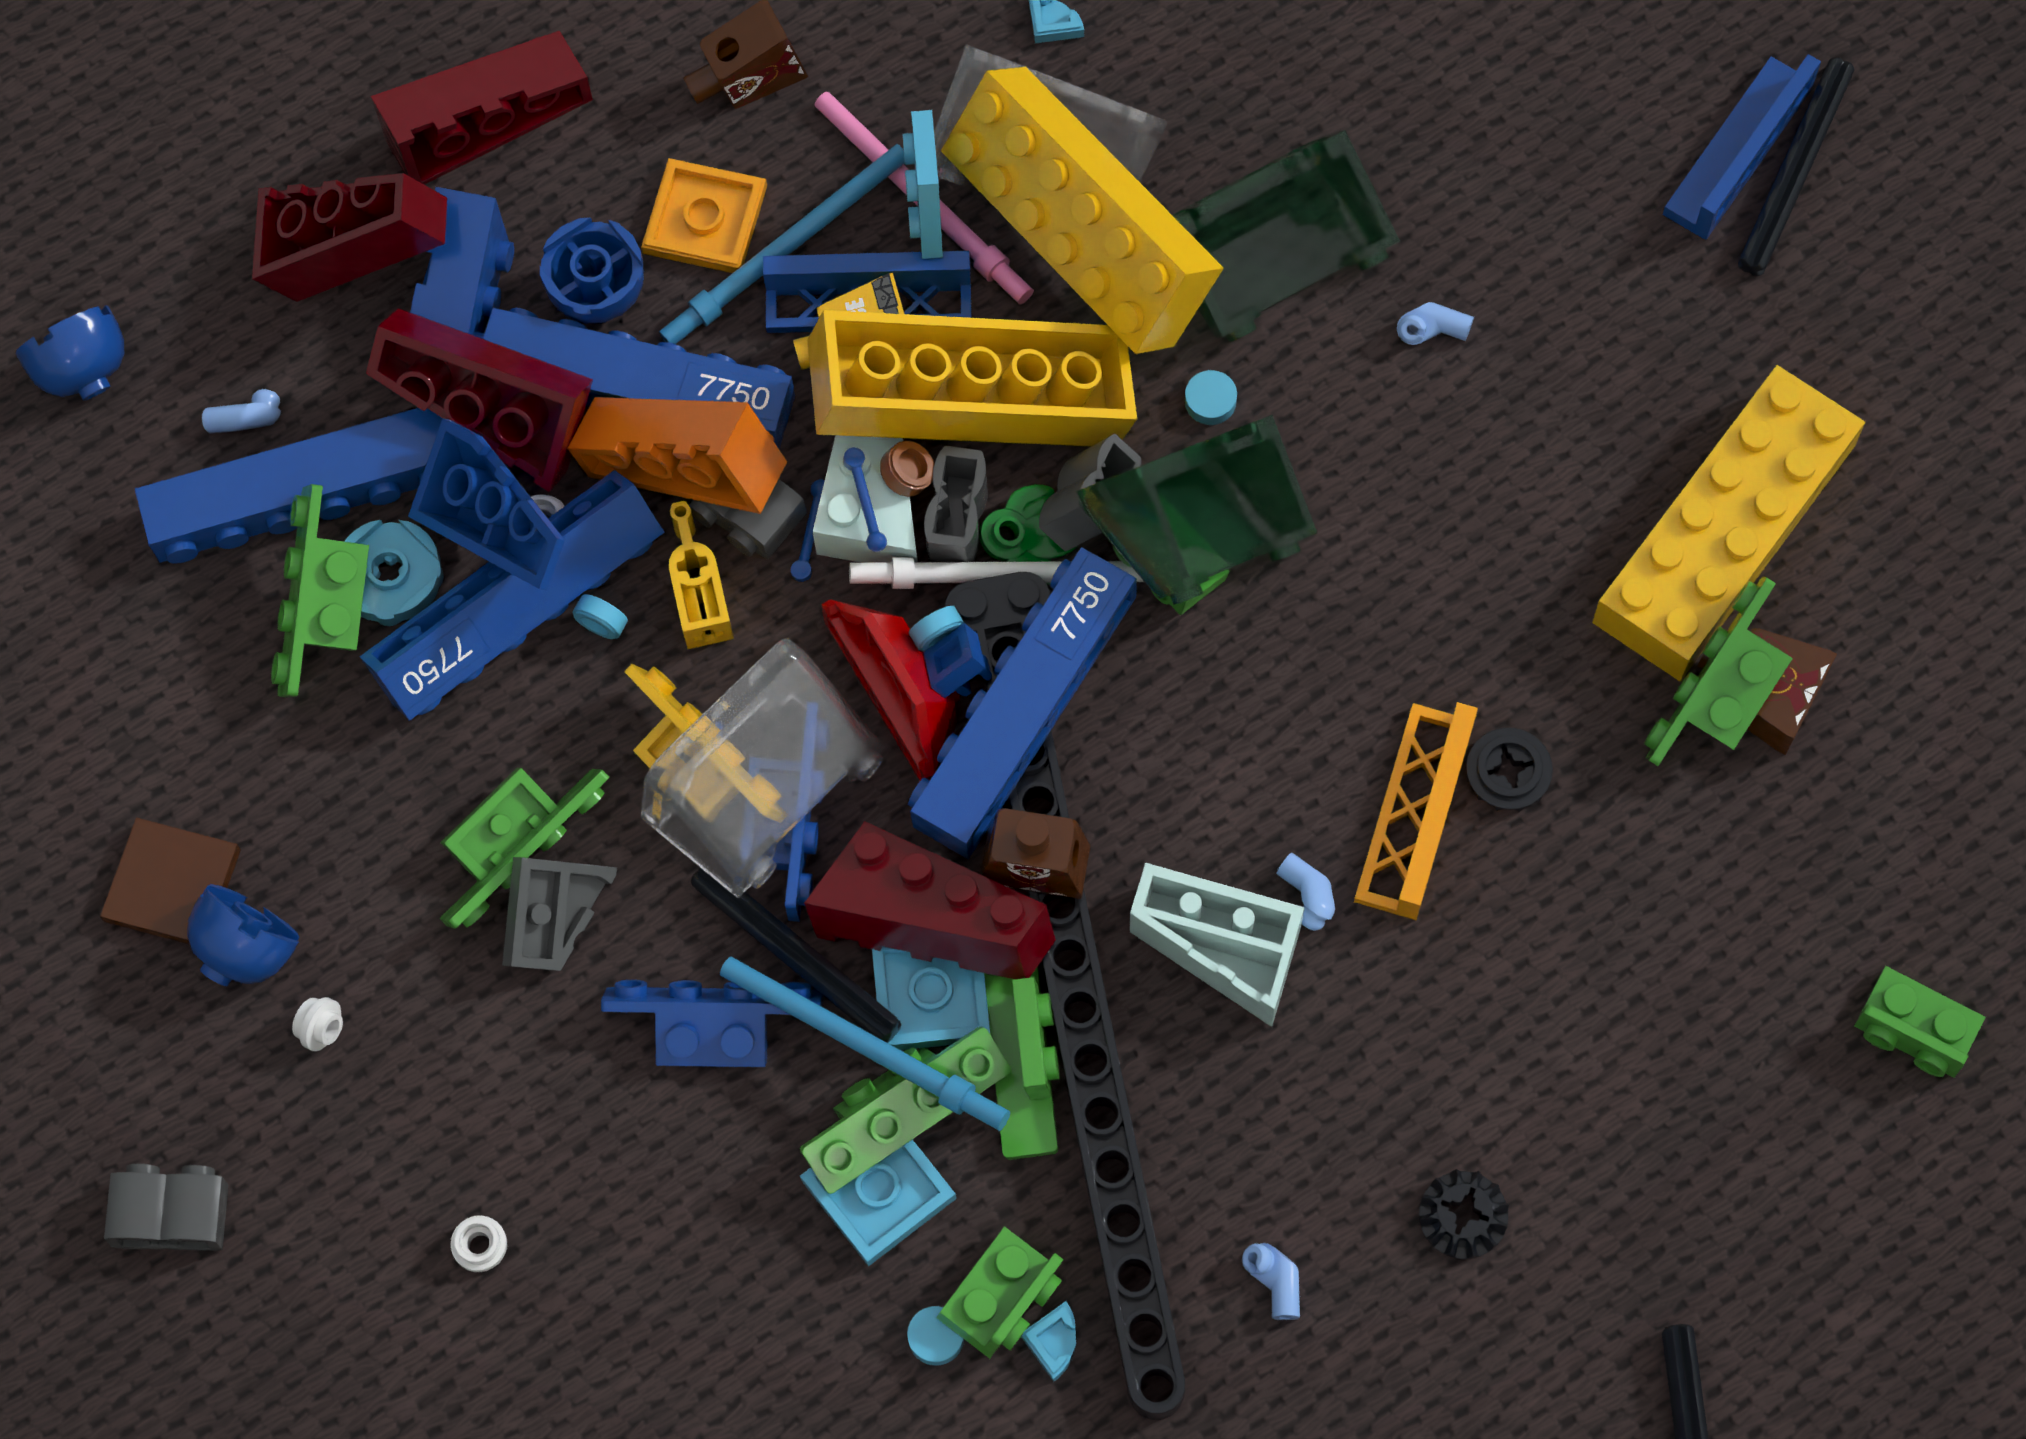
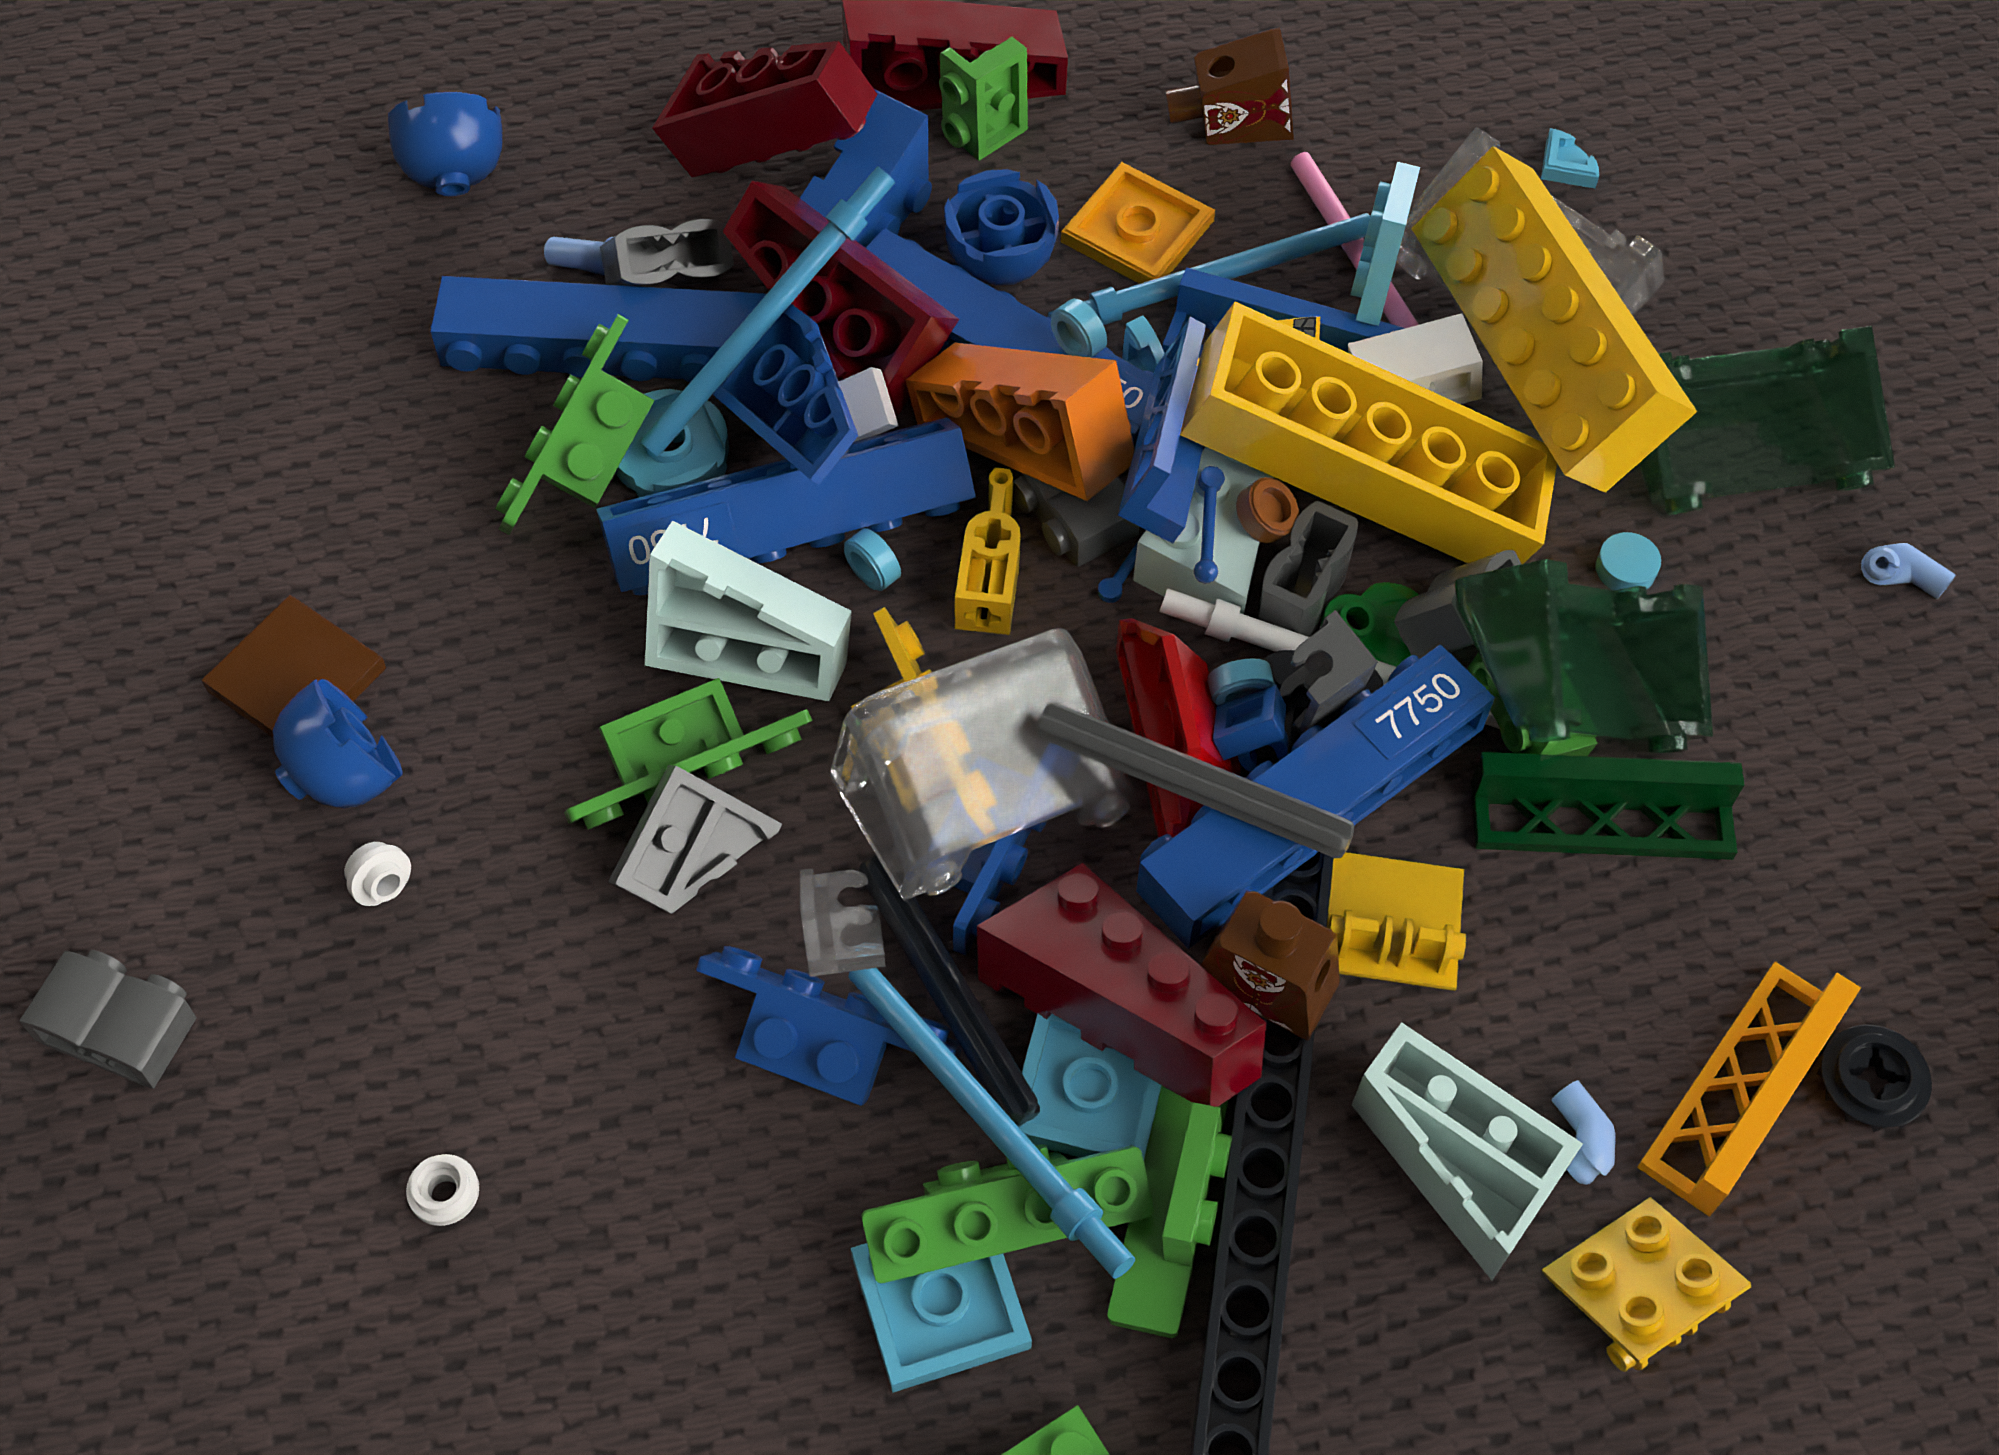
camera: 15 degrees right, 10 degrees down
(311, 406) = (677, 256): none -> dark grey brick
(473, 342) = (845, 222): none -> dark azure bar
(520, 713) = (739, 620): none -> light aqua wedge
(534, 147) = (984, 98): none -> bright green bracket
(546, 485) = (869, 403): none -> white tile
(696, 357) = (1078, 329): none -> medium azure tile
(700, 941) = (836, 935): none -> clear hinge
(754, 344) = (1141, 345): none -> medium azure tile
(810, 459) = (1164, 461): none -> blue fence
(928, 731) = (1196, 780): none -> dark grey axle
(988, 281) = (1432, 355): none -> white hinge
(1002, 598) = (1333, 671): none -> dark grey hinge
(1117, 773) = (1397, 920): none -> yellow hinge
(1244, 604) = (1611, 785): none -> dark green fence
(1381, 988) = (1646, 1282): none -> yellow hinge

